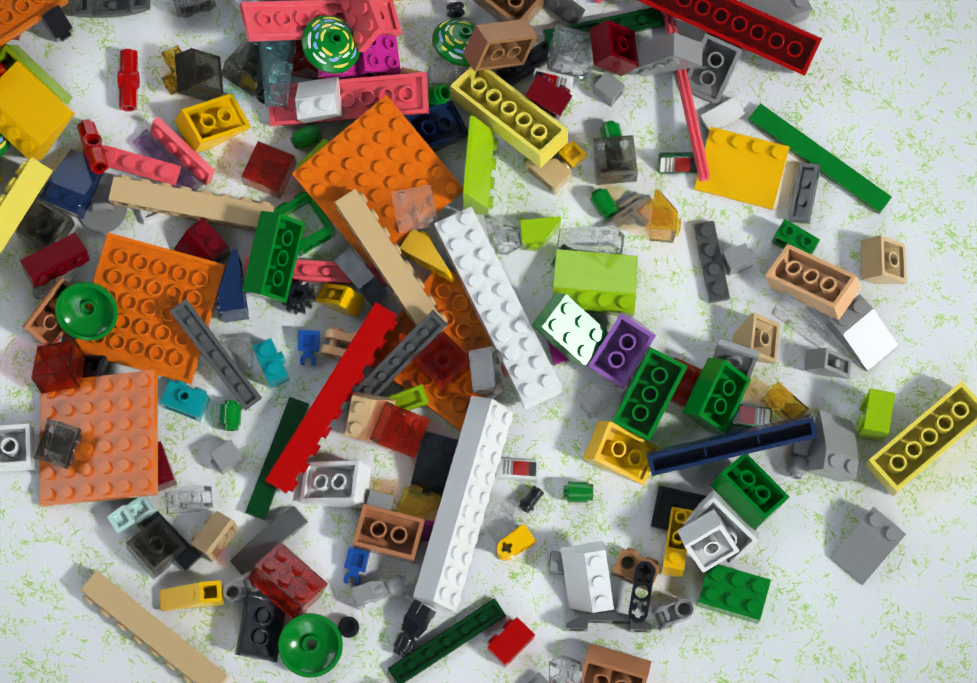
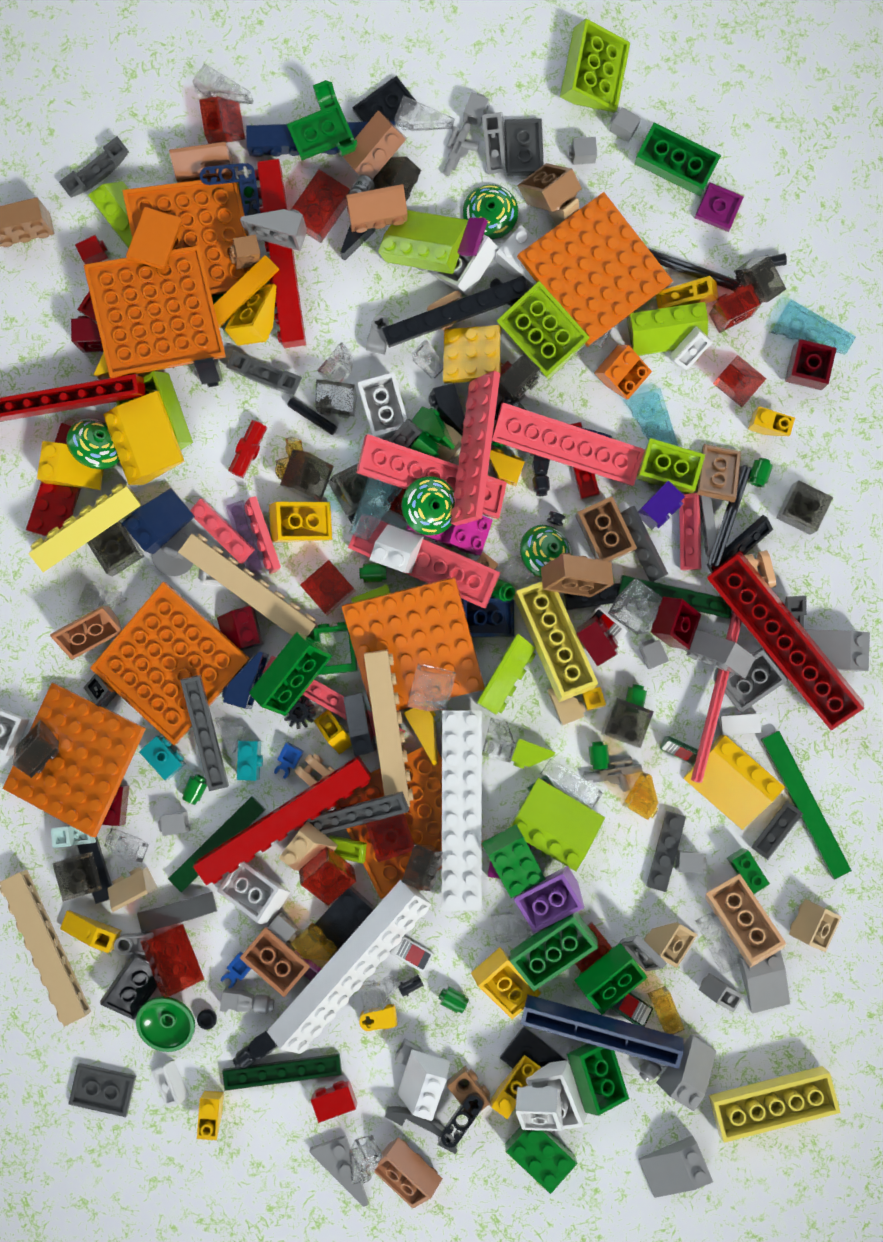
camera: 30 degrees right, 10 degrees up
(55, 260) = (107, 585): dark red brick -> none
(58, 366) = (68, 680): clear red brick -> none
(86, 322) = (111, 645): green dish -> none
(92, 146) = (186, 505): red piece -> none
(176, 23) = (312, 416): none -> black axle
(671, 614) = (480, 1143): light grey piece -> none
(876, 415) = (739, 1063): lime brick -> none

